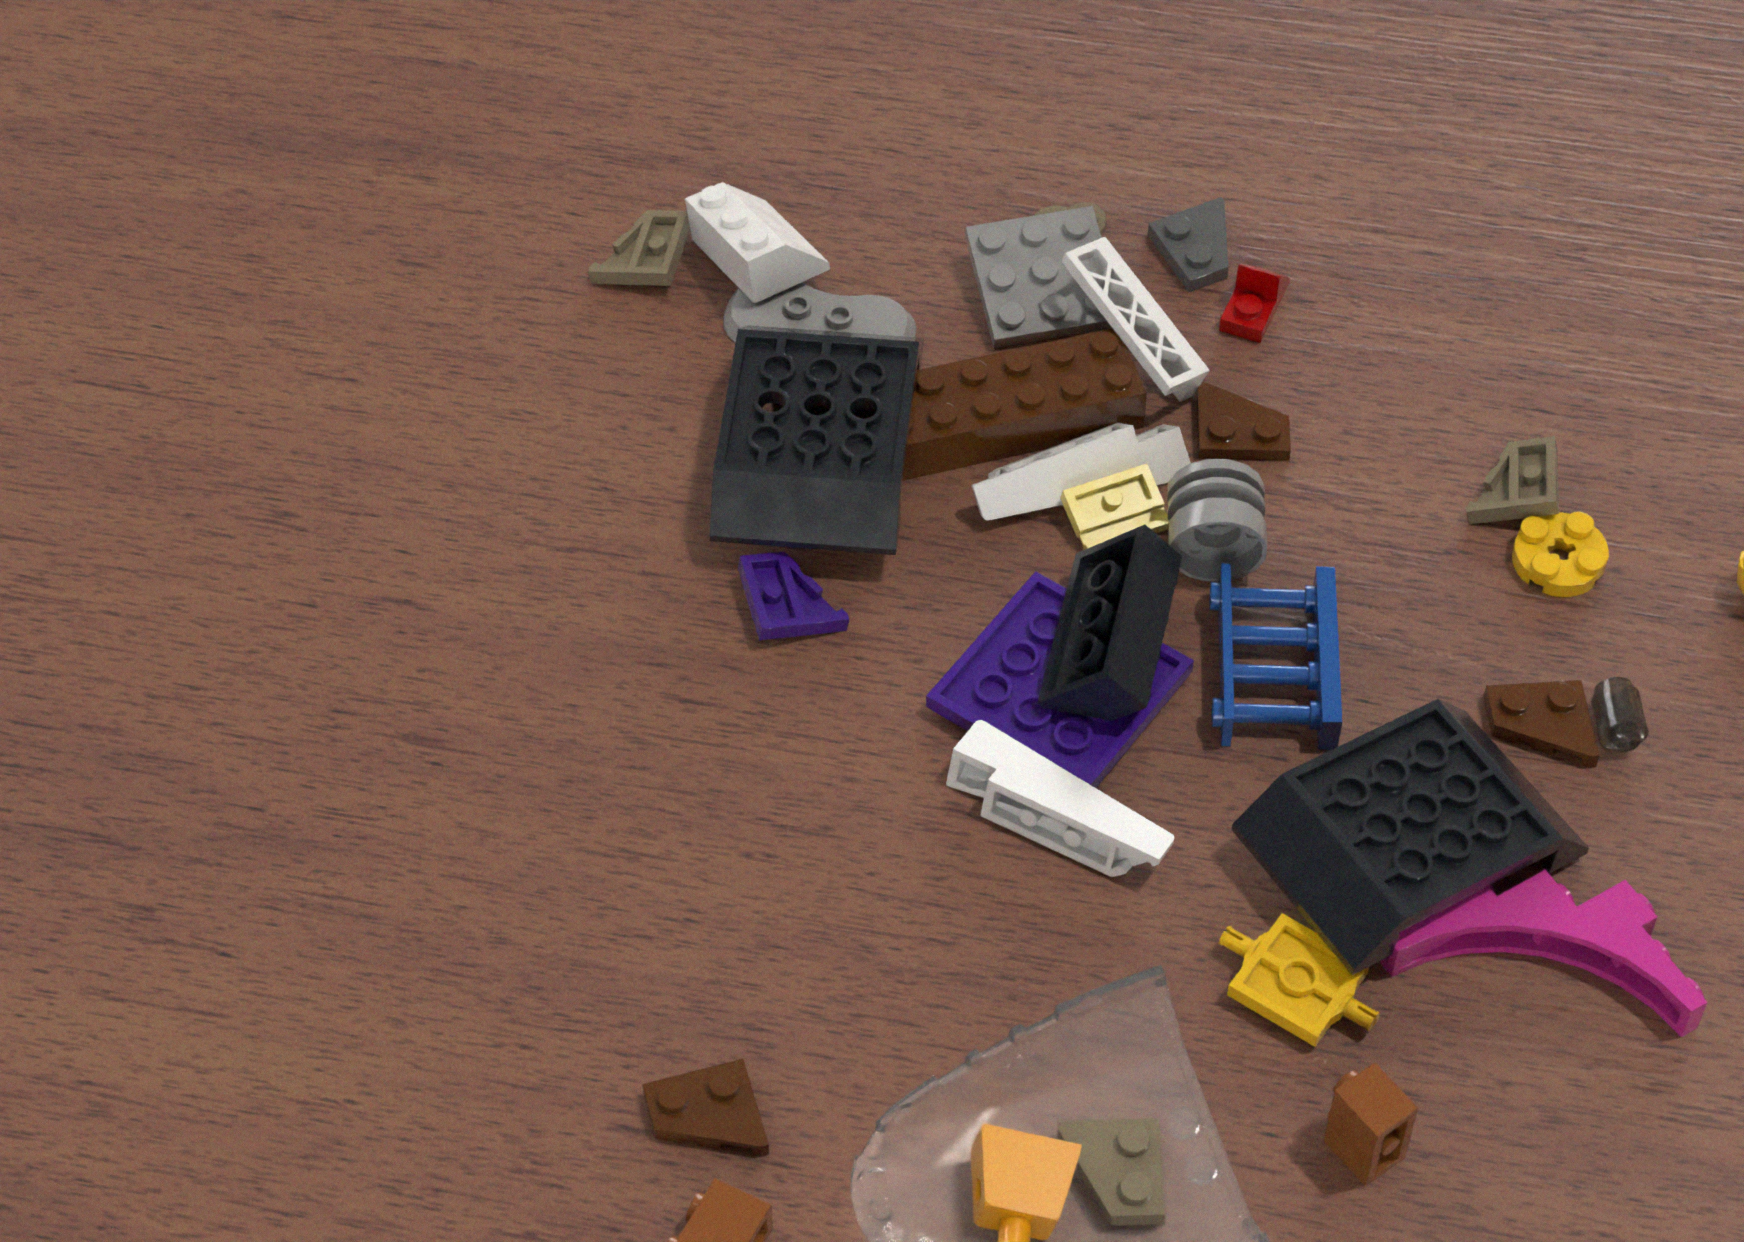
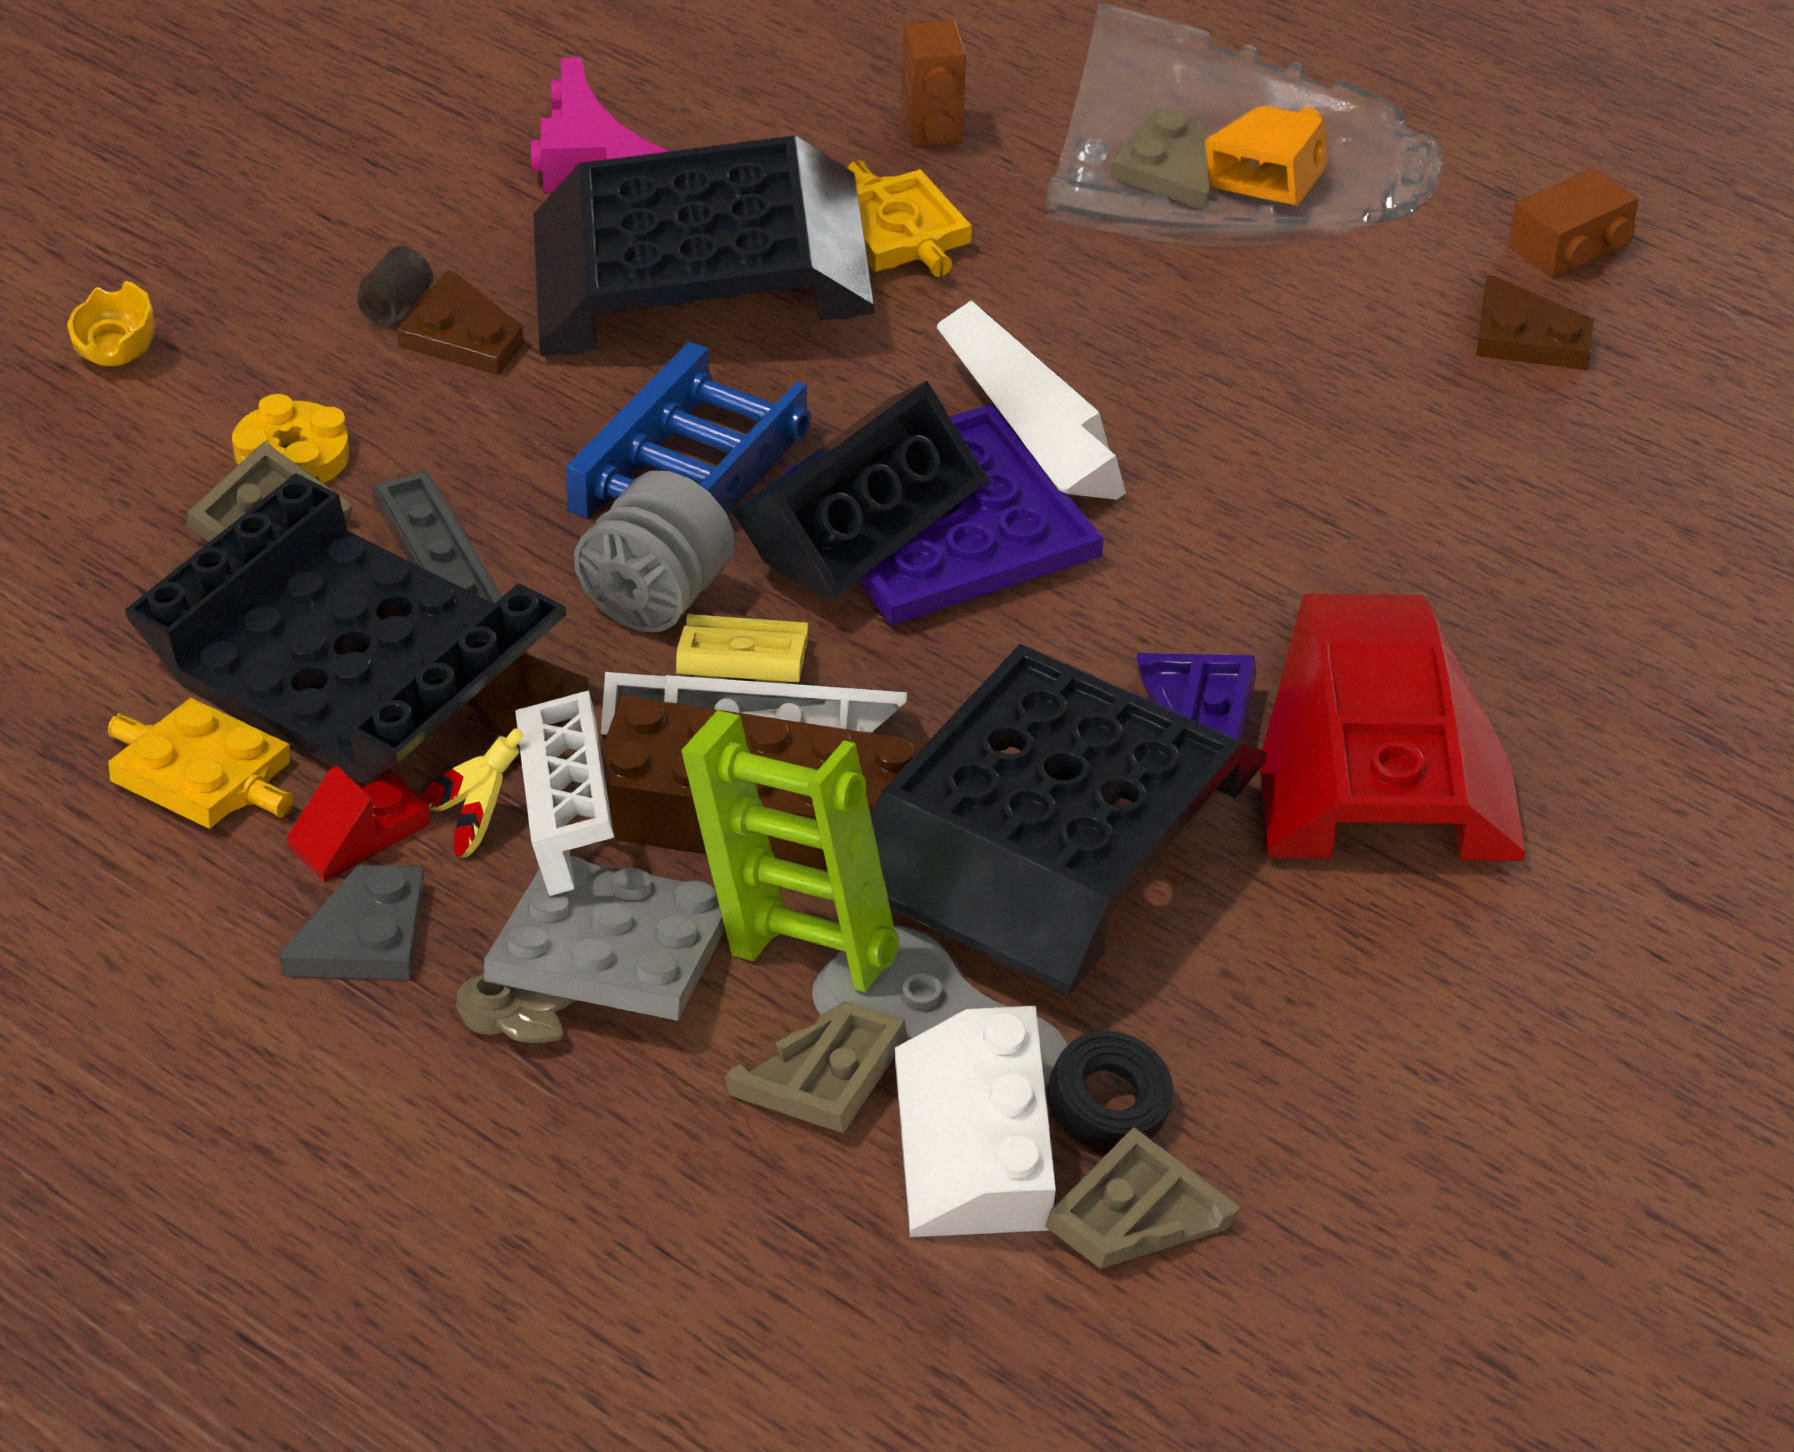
camera: 155 degrees left, 10 degrees down
(645, 619) = (1381, 732): none -> red wedge
(704, 321) = (1117, 1054): none -> black tyre
(869, 255) = (824, 1069): none -> dark tan wing
(975, 293) = (749, 875): none -> lime fence
(1190, 324) = (479, 784): none -> light yellow piece
(1378, 511) = (431, 533): none -> dark grey tile
(1383, 296) = (200, 763): none -> yellow plate
(1426, 405) = (292, 594): none -> black slope

